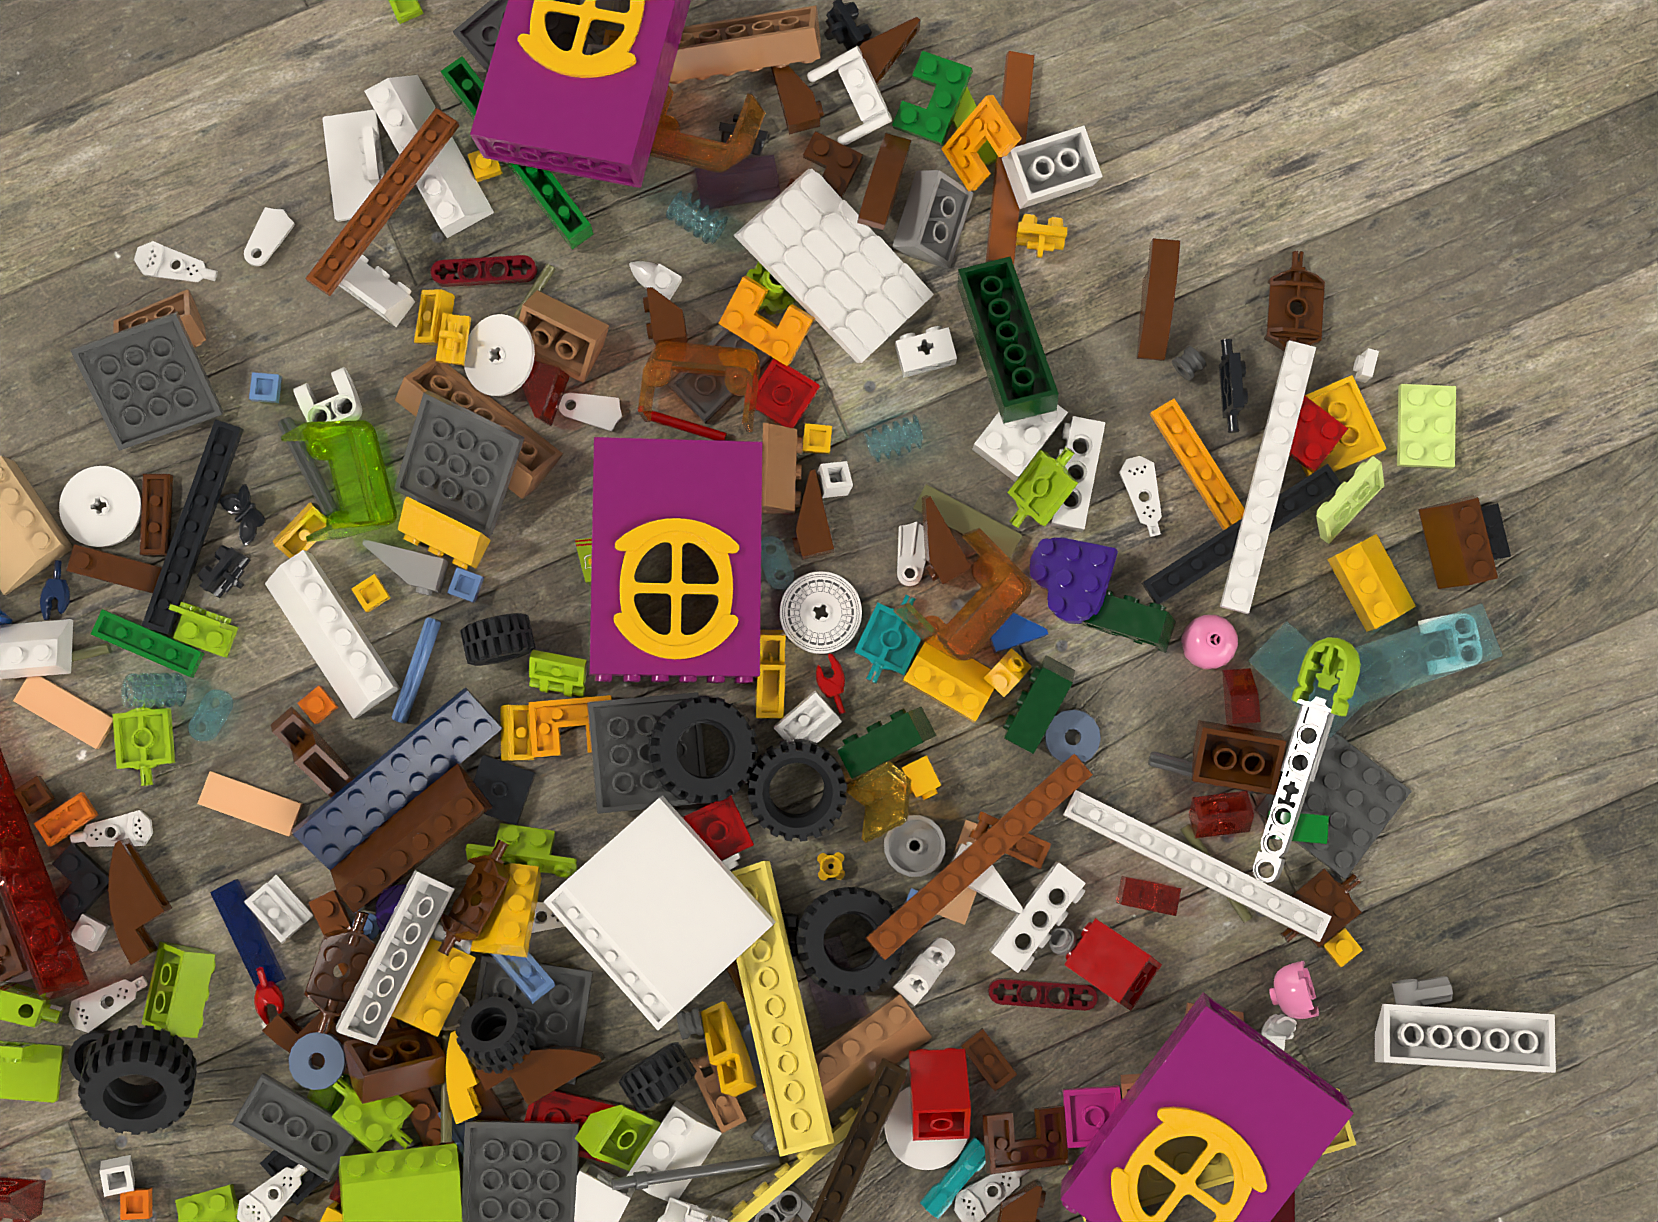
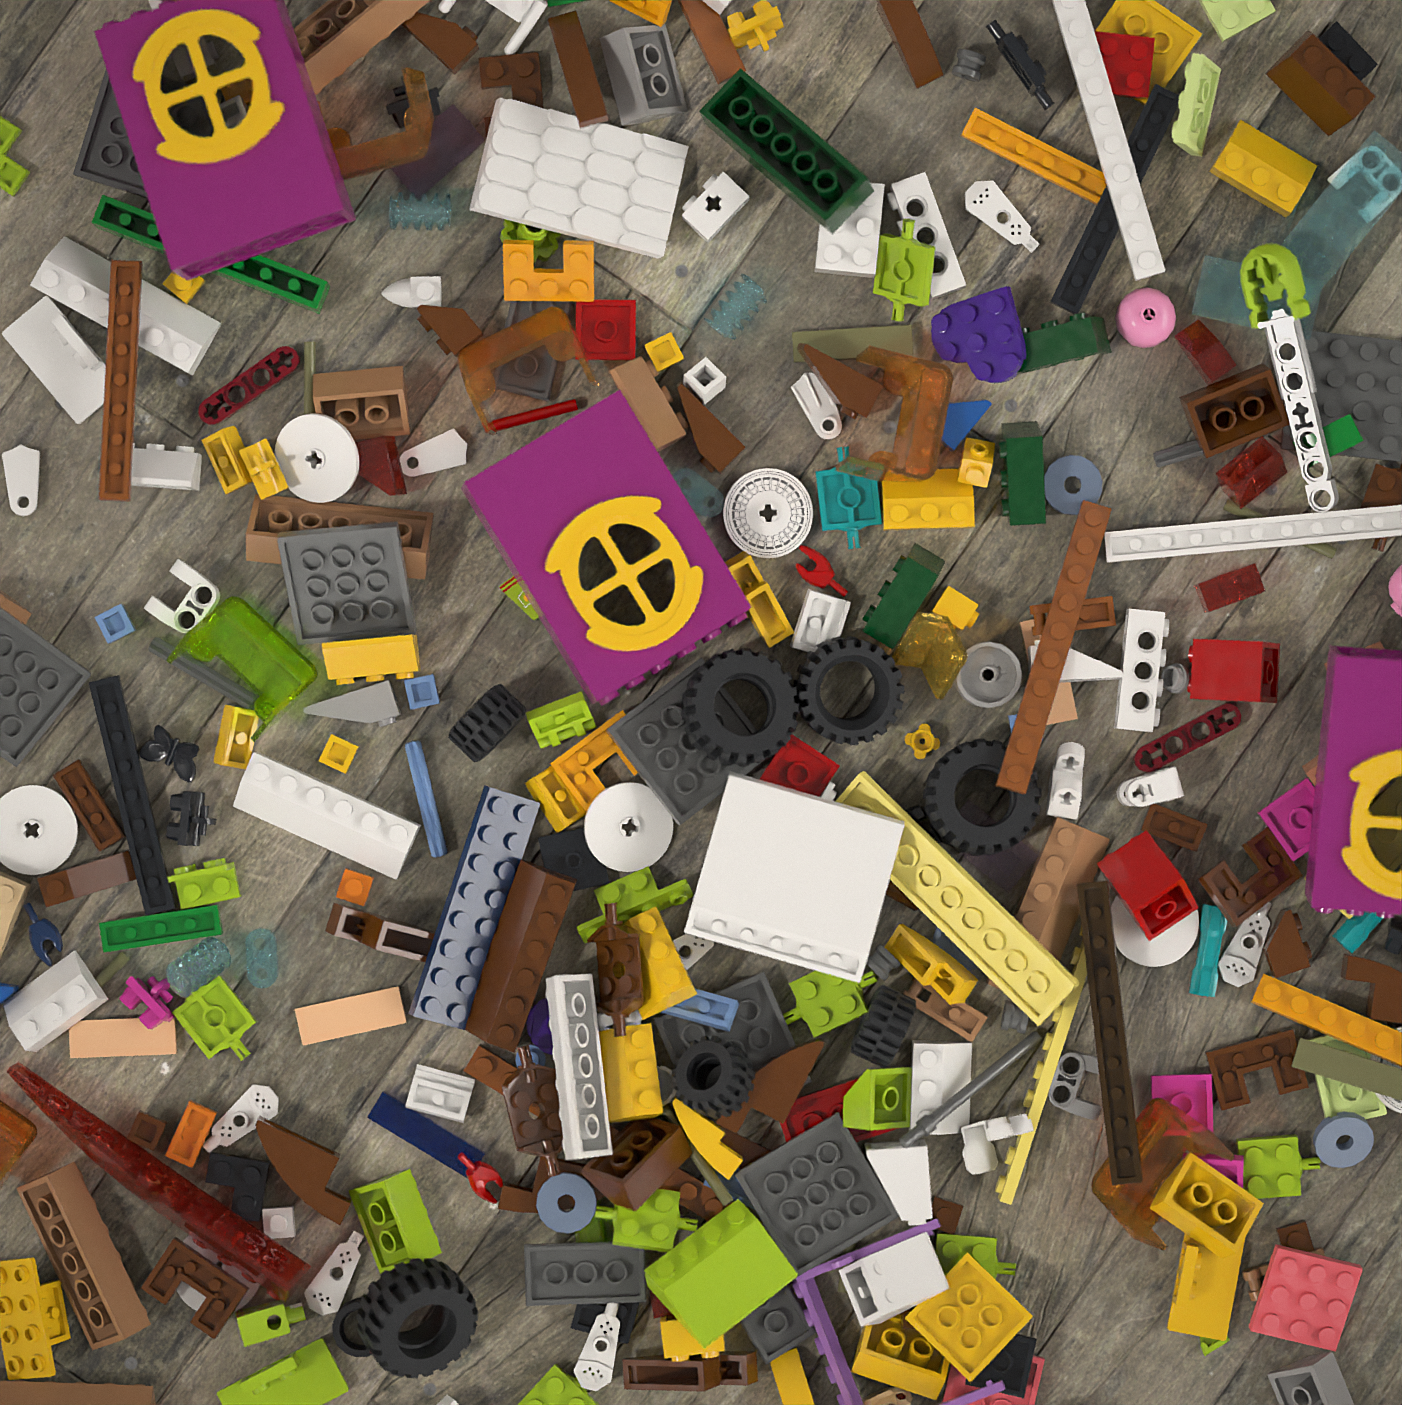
camera: 35 degrees left, 5 degrees up
(105, 693) = (138, 991): none -> dark pink hips
(536, 790) = (609, 841): none -> white piece
(627, 1029) = (828, 1001): none -> lime plate
(993, 1018) = (1154, 786): none -> white piece

